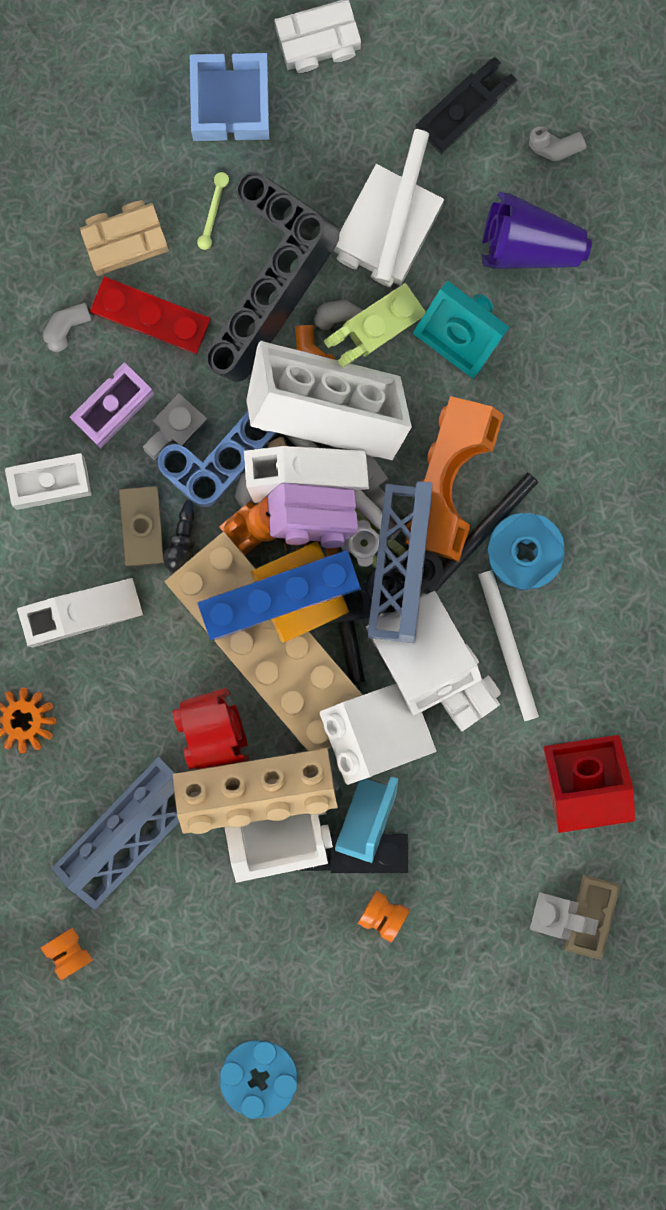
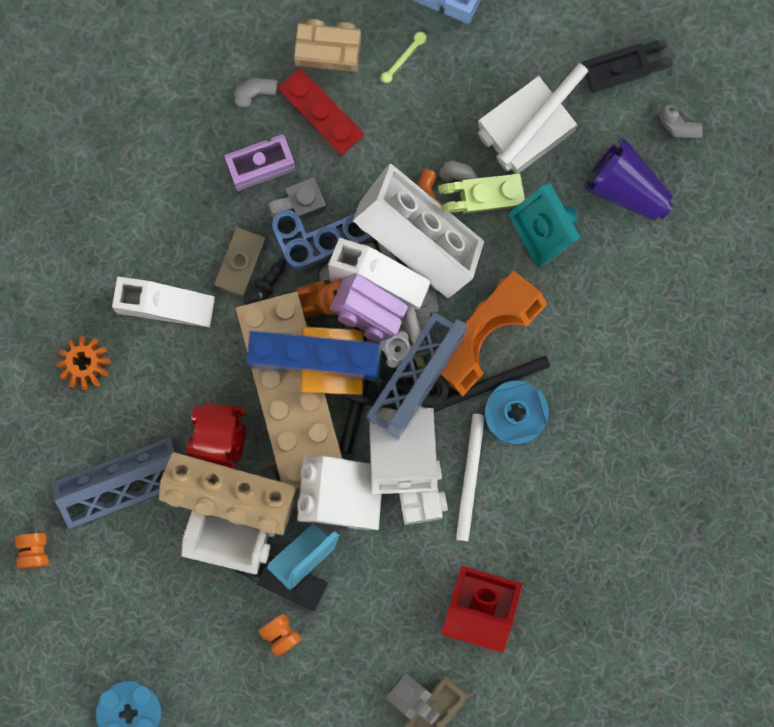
camera: 30 degrees right, 5 degrees down
(48, 481) = (186, 196): white panel -> none
(273, 276) = (423, 123): black beam -> none

